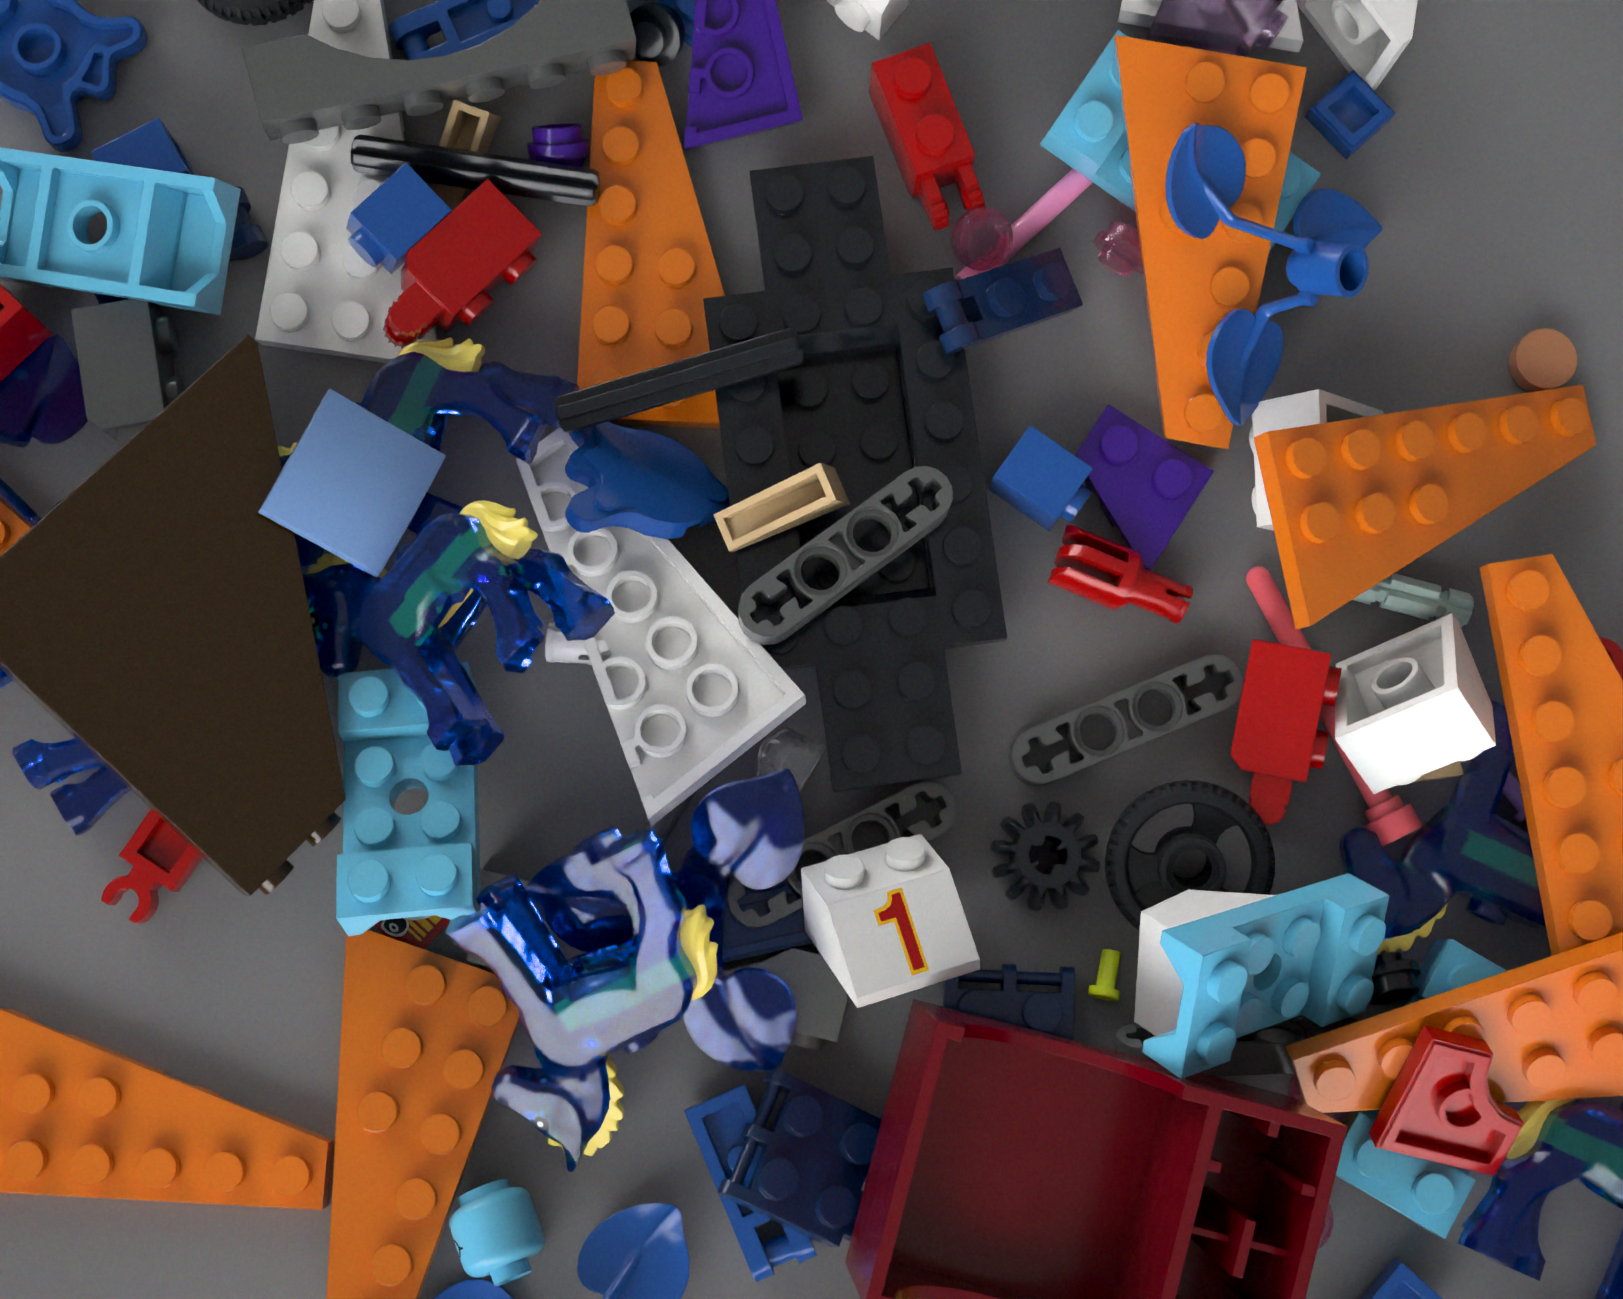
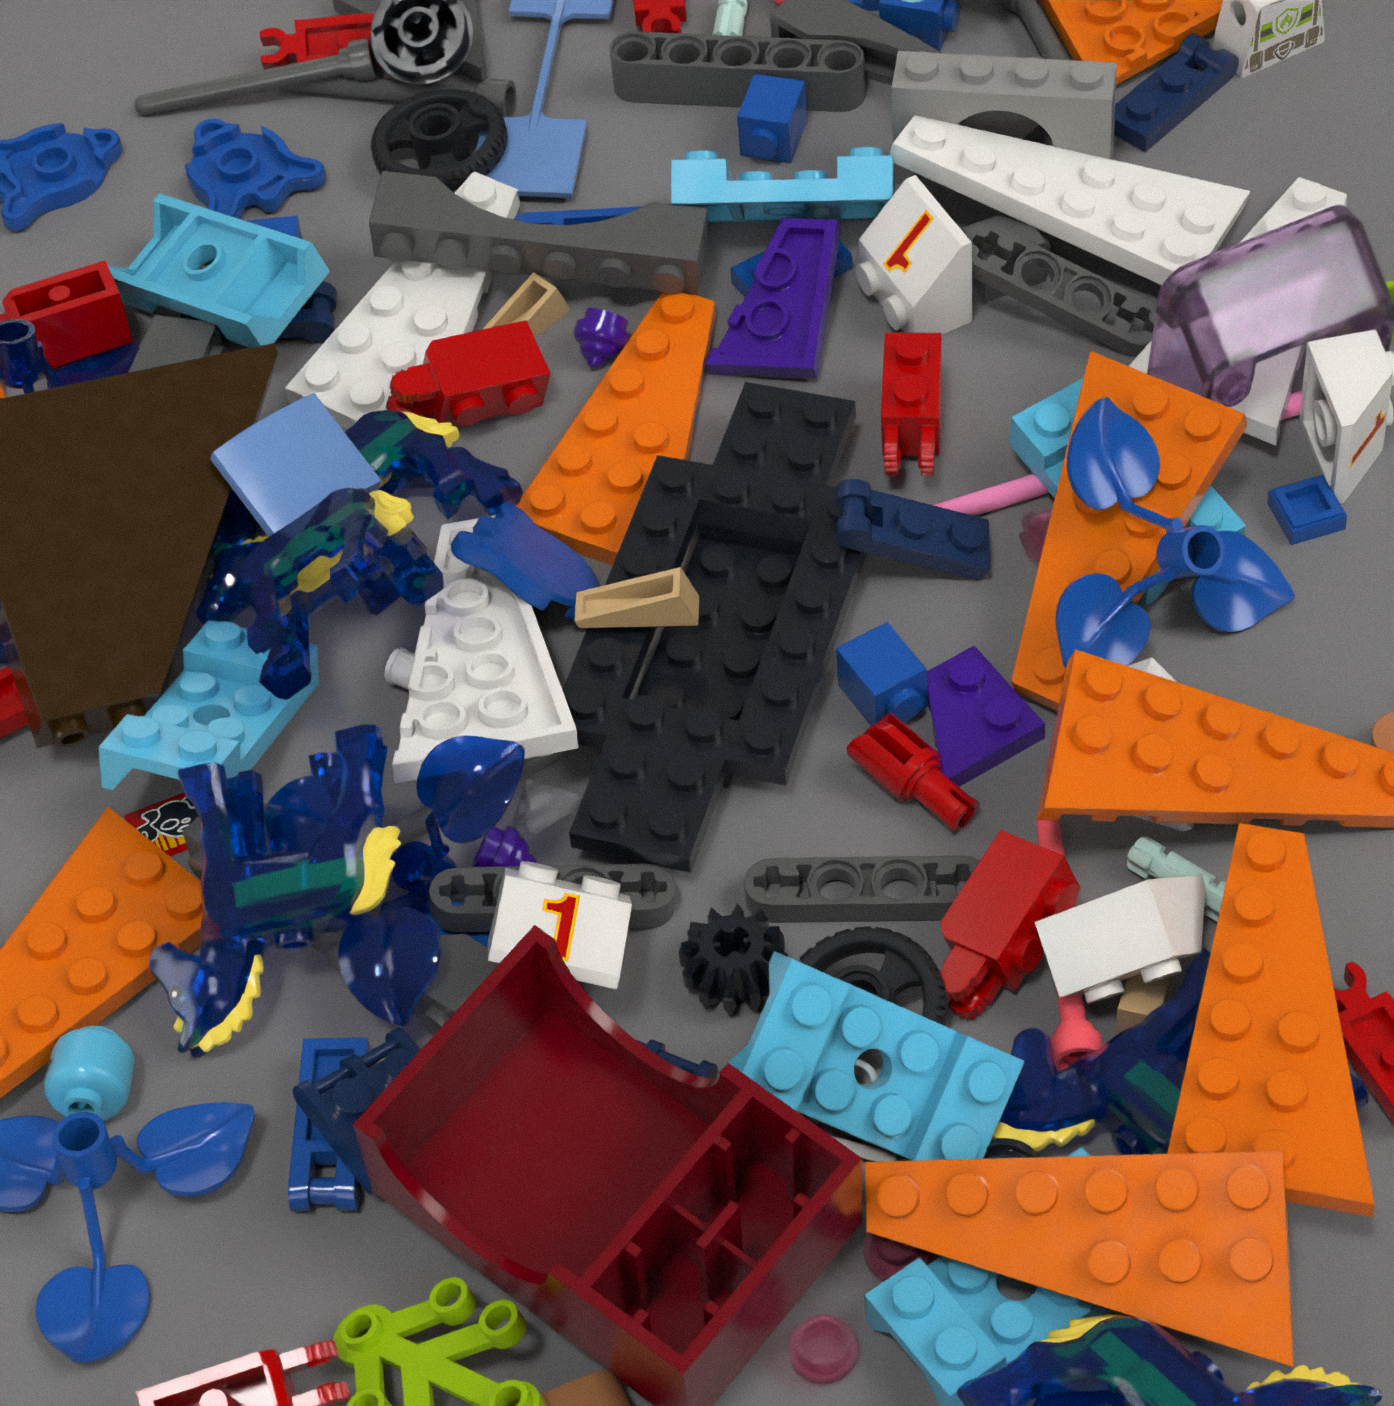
camera: 35 degrees right, 30 degrees down
(394, 219) = (434, 316): blue brick -> none
(472, 168) = (548, 331): black axle -> none
(657, 32) = (724, 280): black plate -> none
(679, 380) = (602, 492): black axle -> none
(841, 549) = (667, 639): dark grey beam -> none
(982, 238) = (922, 482): clear pink plate -> none
(1444, 1106) = (992, 1256): red tile -> none

